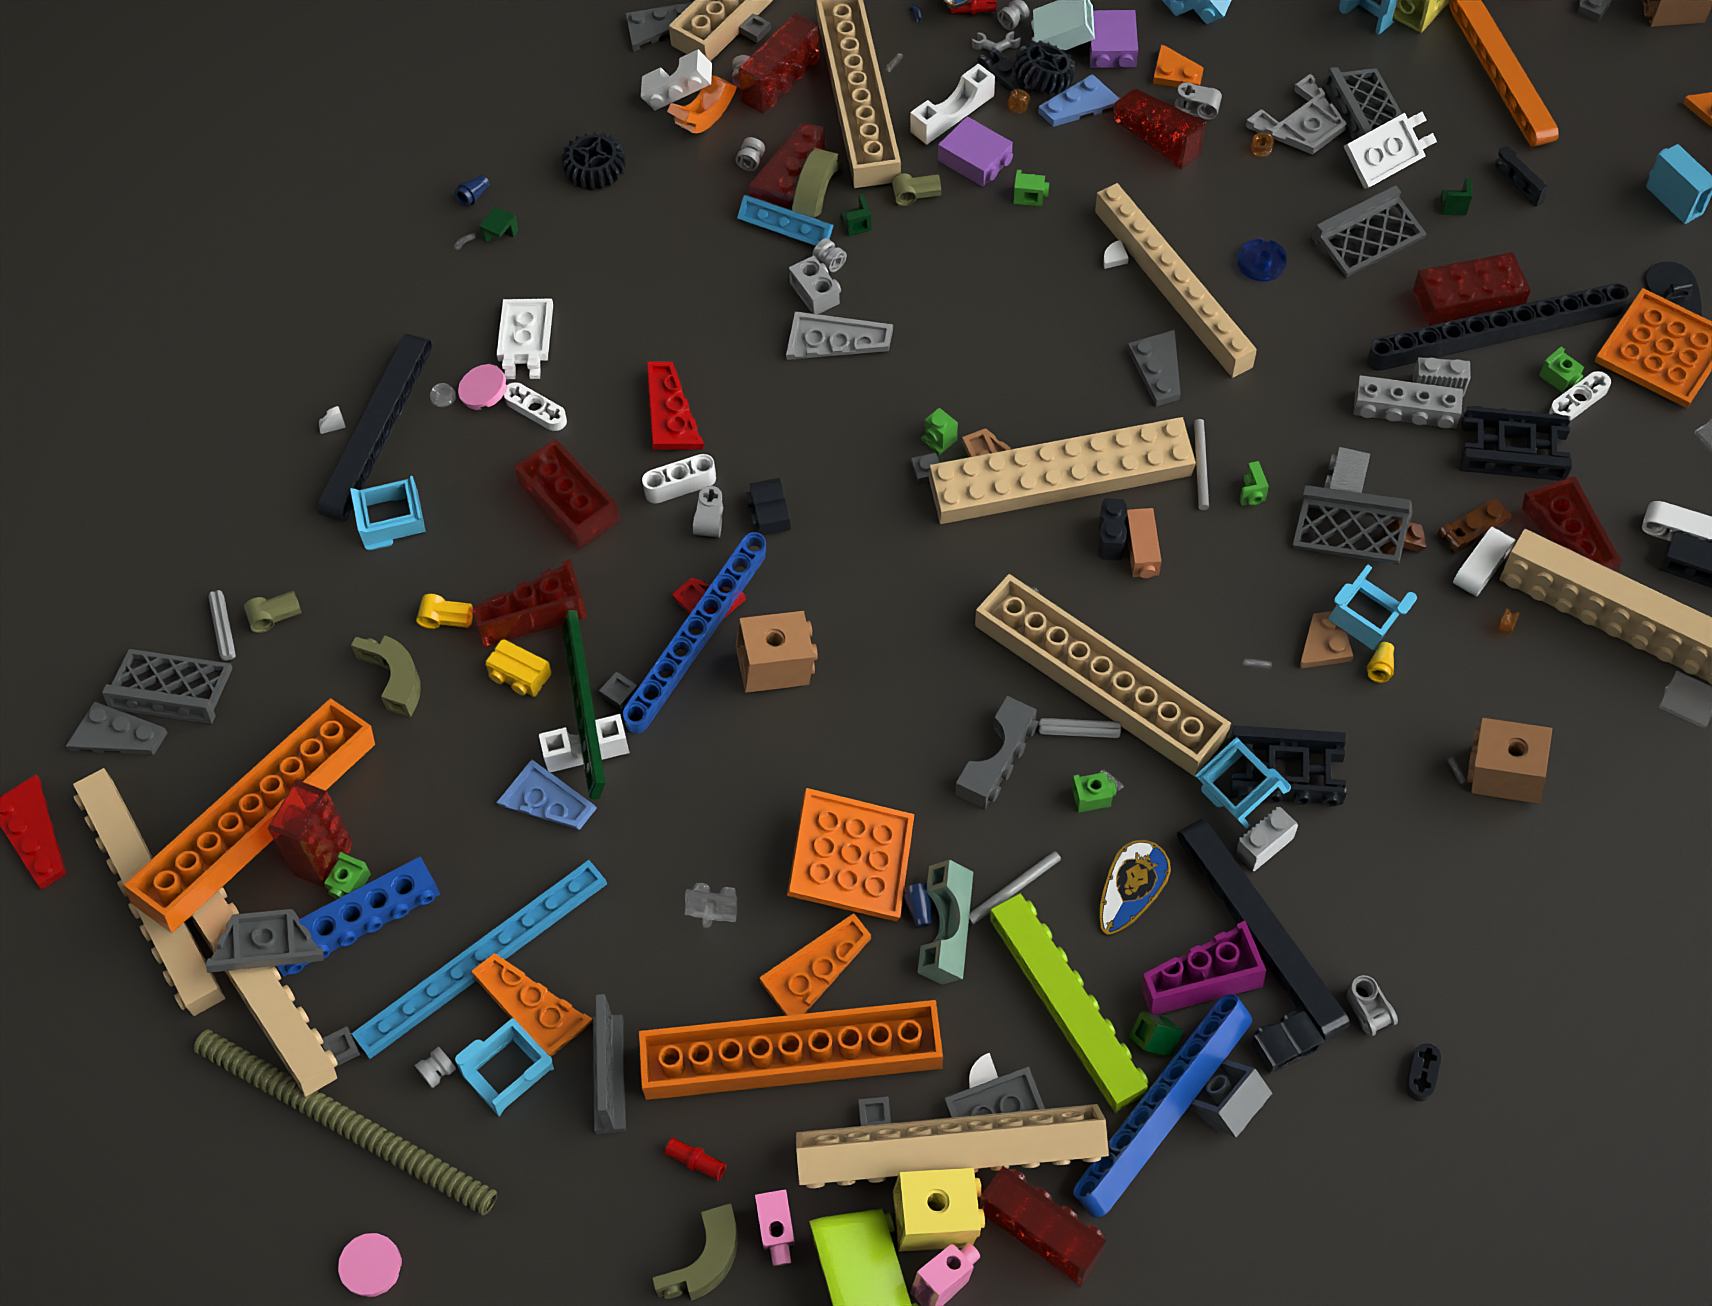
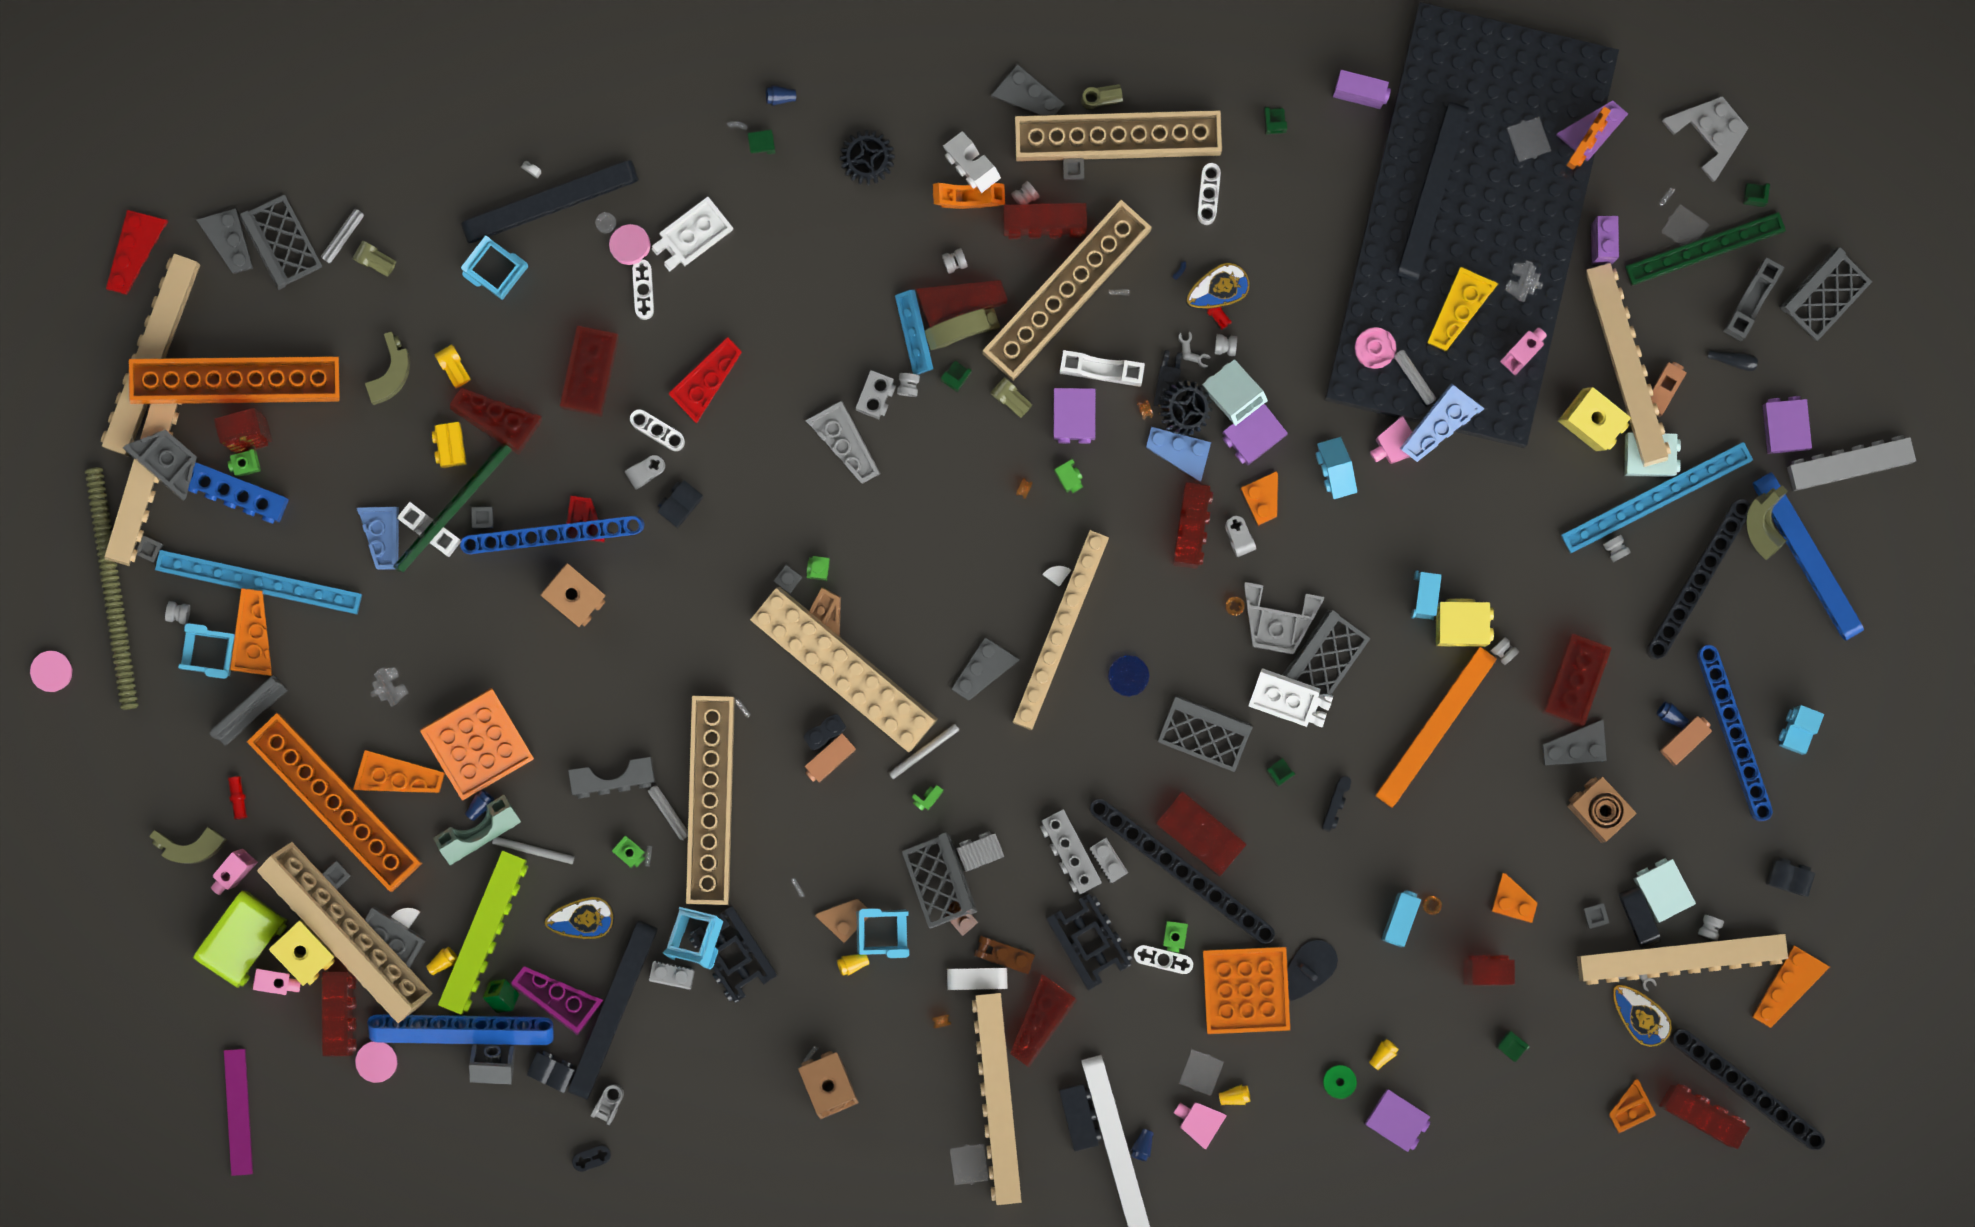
camera: 45 degrees right, 25 degrees up
(1010, 228) = (1024, 488): none -> clear orange bush
(1066, 1069) = (442, 961): none -> yellow cone
(1131, 1232) = (376, 1061): none -> bright pink tile

